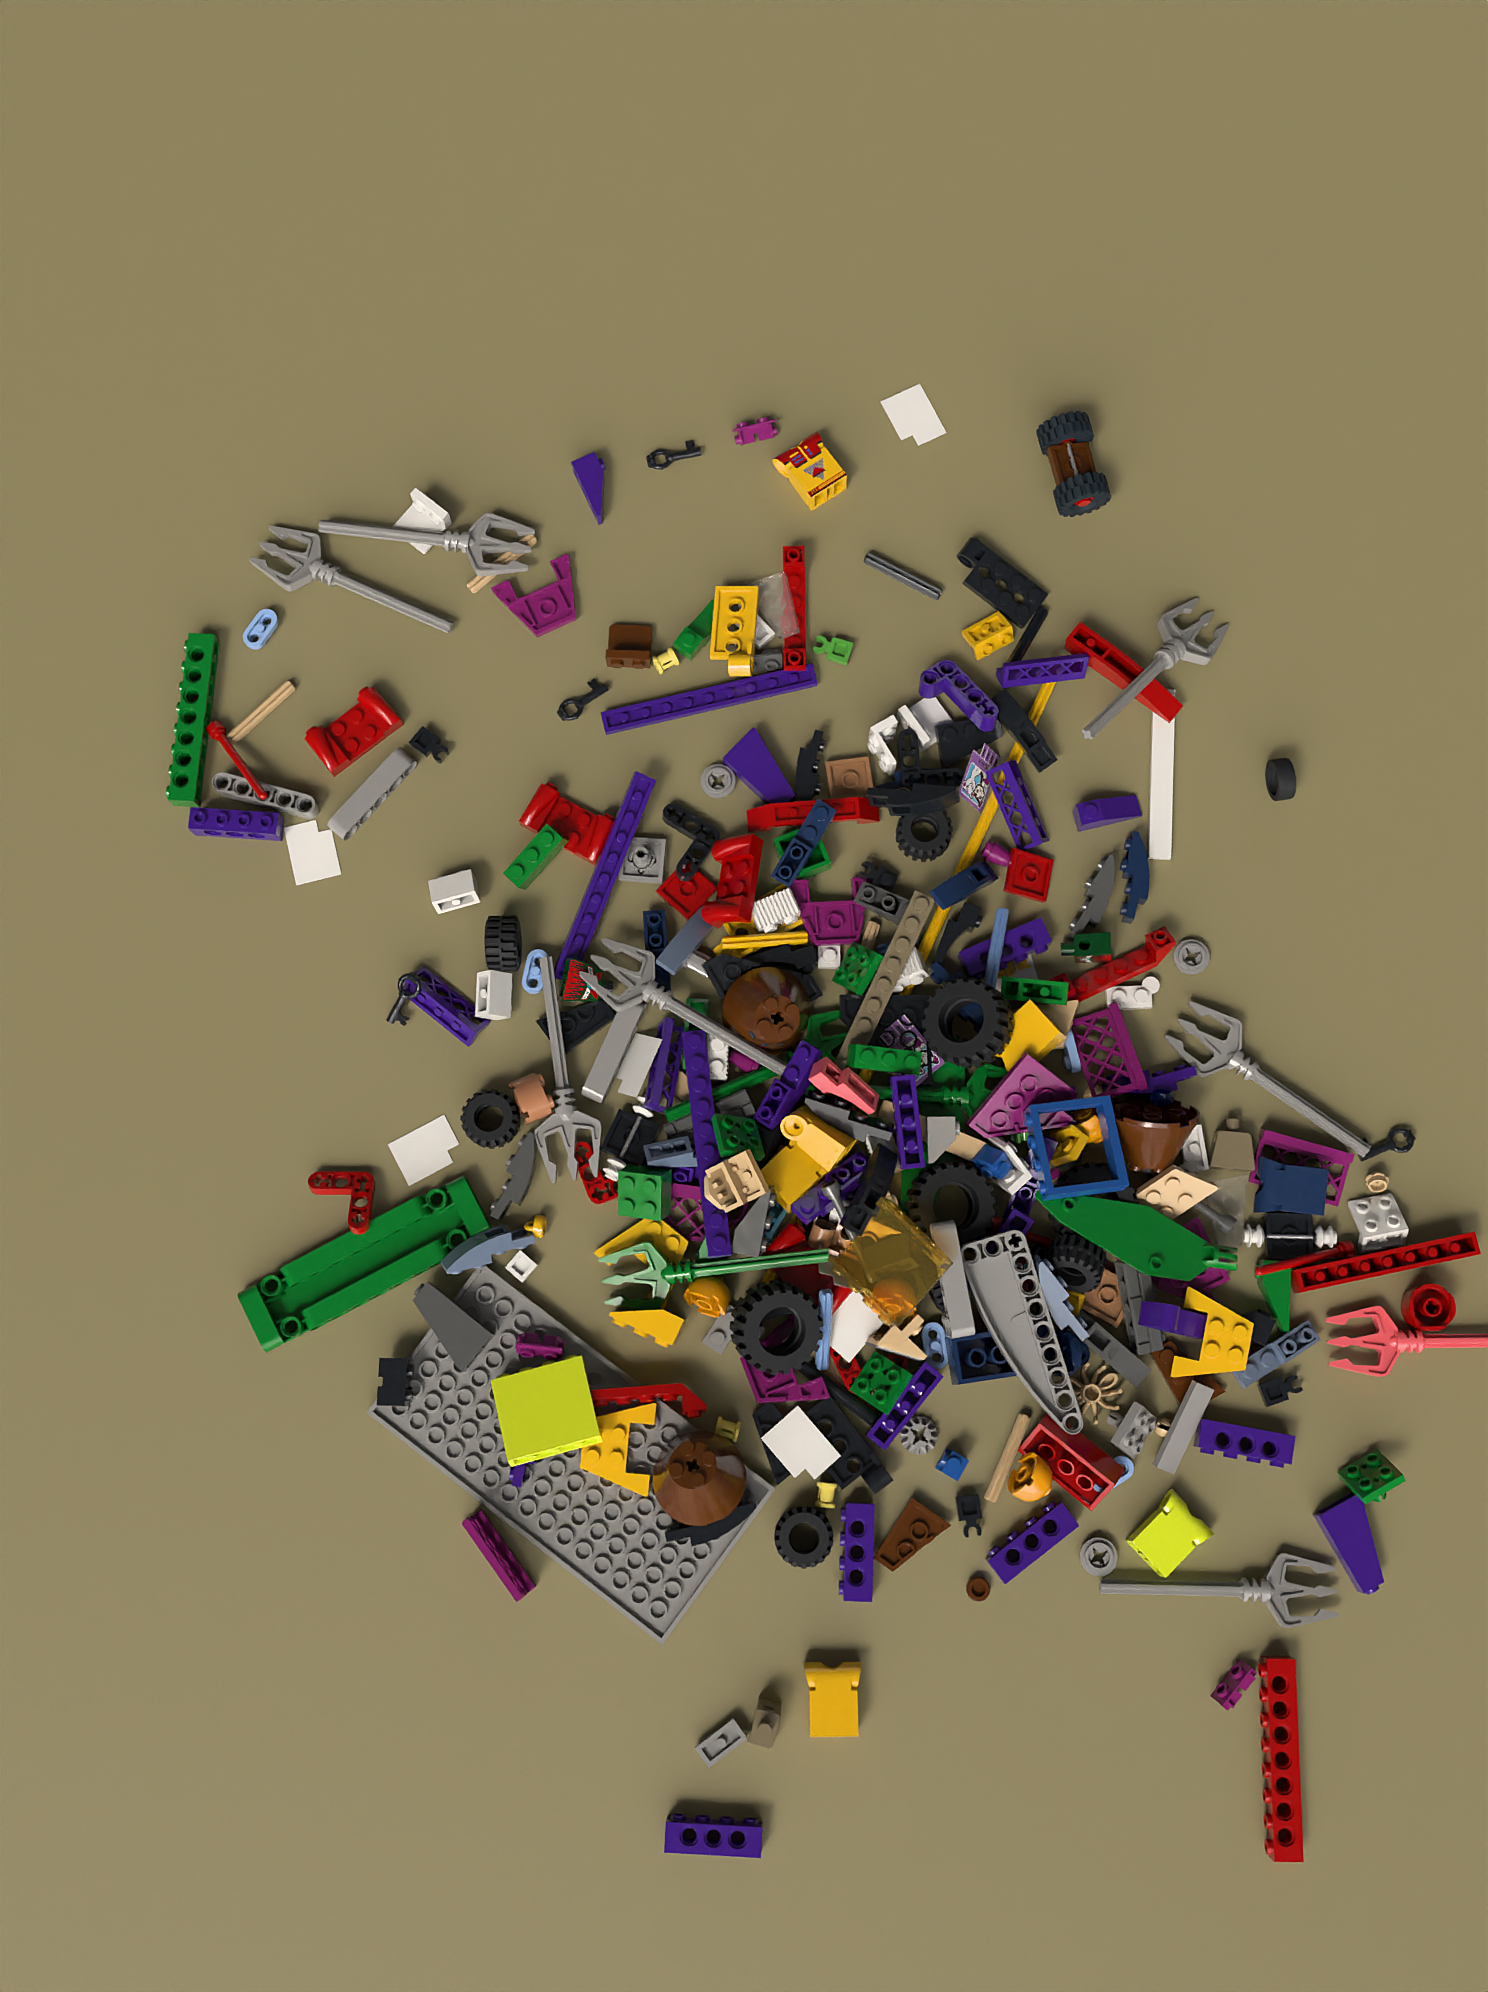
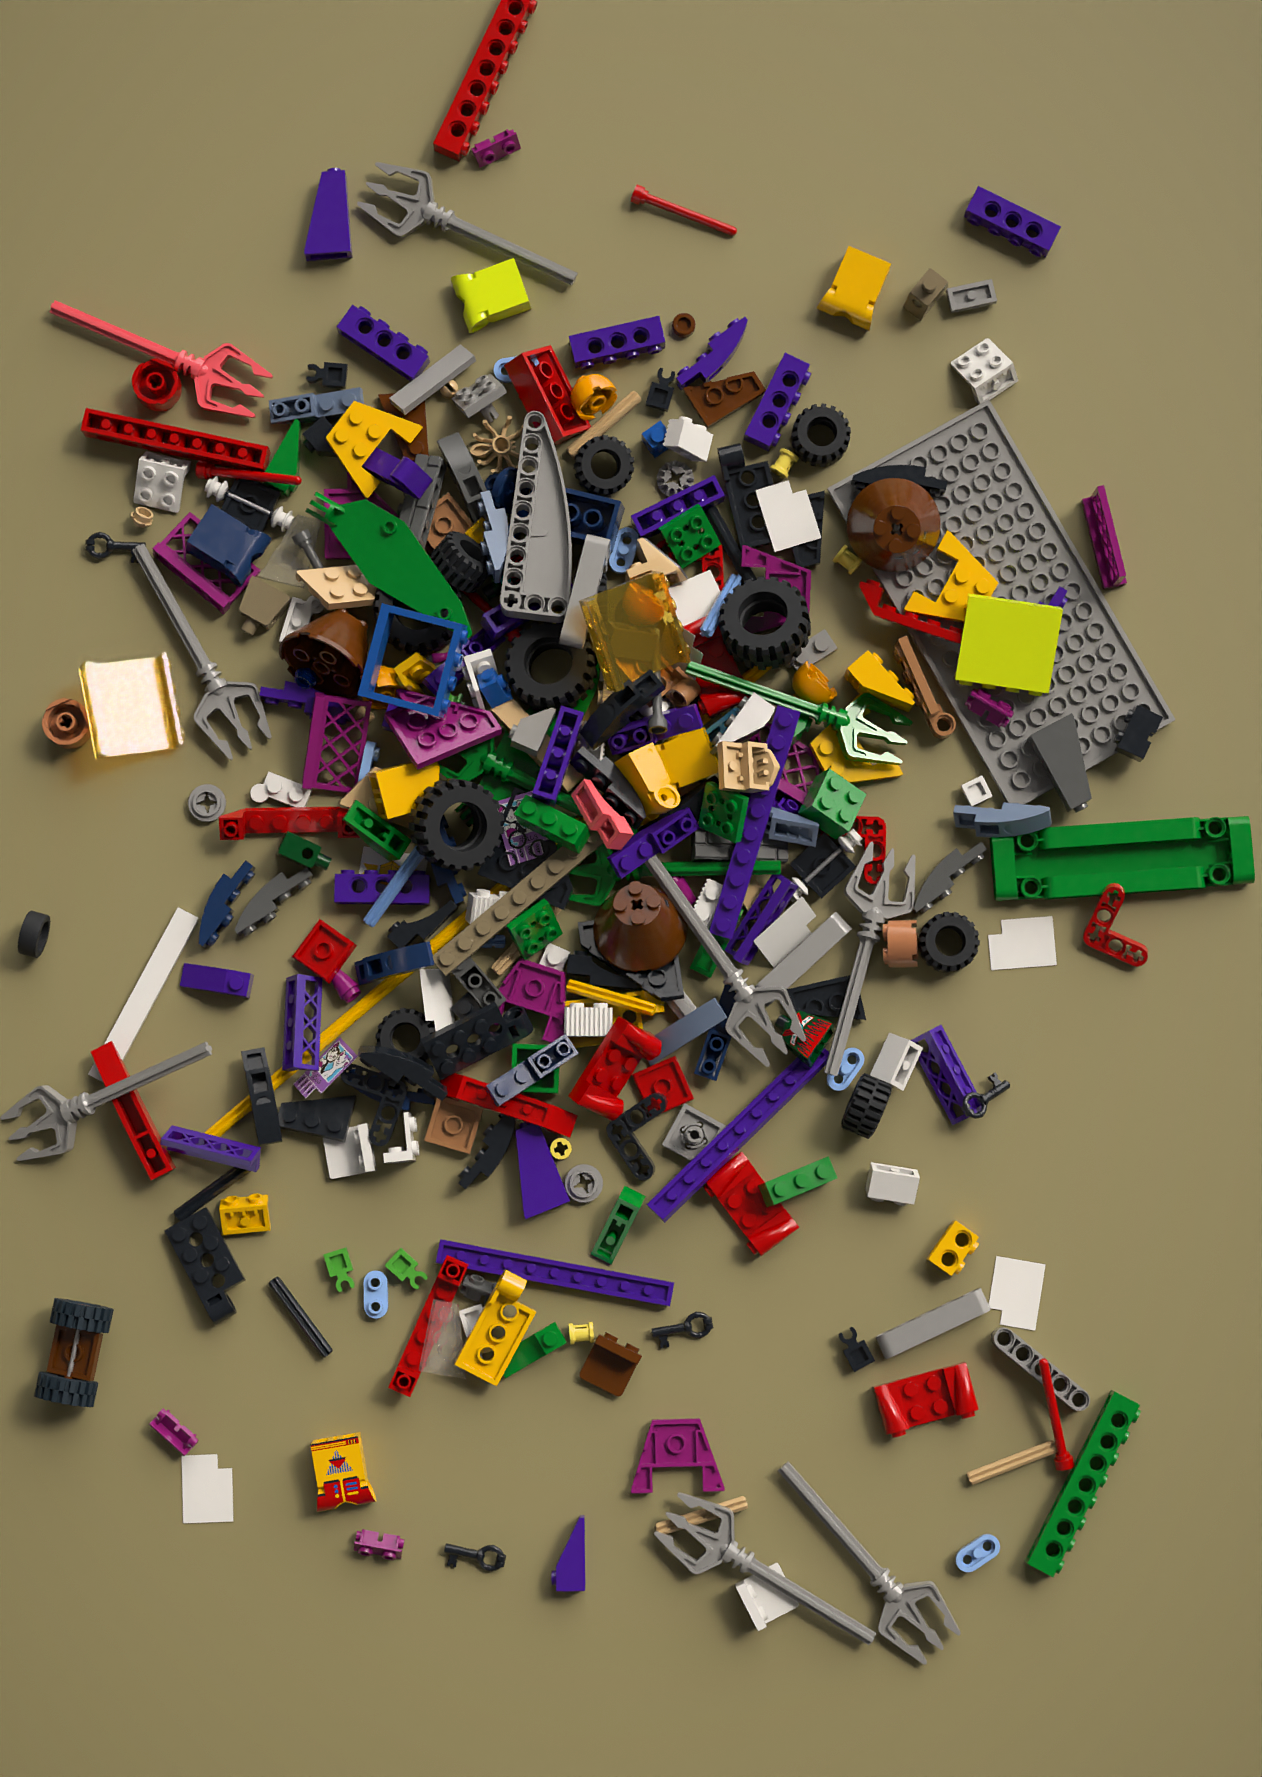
camera: 160 degrees left, 5 degrees up
(236, 824) = (1081, 1351): dark purple brick -> none
(386, 862) = (948, 1244): none -> yellow brick
(537, 1226) = (944, 819): yellow tile -> none
(590, 1320) = (923, 696): none -> medium nougat hinge
(673, 760) = (618, 1225): none -> green slope
(677, 1673) = (986, 370): none -> white bracket
(750, 793) = (554, 1145): none -> light yellow bush
(836, 879) = (513, 1027): none -> black hinge
(848, 619) = (376, 1294): none -> light blue plate
(890, 628) = (339, 1264): none -> bright green plate
(911, 871) = (437, 997): none -> white sticker
(924, 1475) = (688, 439): none -> white brick
(931, 1581) = (721, 348): none -> dark purple slope
(961, 444) = (169, 1428): none -> magenta hinge
(968, 697) = (305, 1157): dark purple beam -> none
(972, 1403) = (623, 460): none -> black tyre
(1074, 1699) = (642, 196): none -> red piece
(1109, 1558) = (570, 296): light grey gear -> none
(1300, 1007) = (131, 706): none -> clear yellow panel
(1358, 970) = (55, 721): none -> nougat brick
(1373, 1481) = (285, 259): green plate -> none

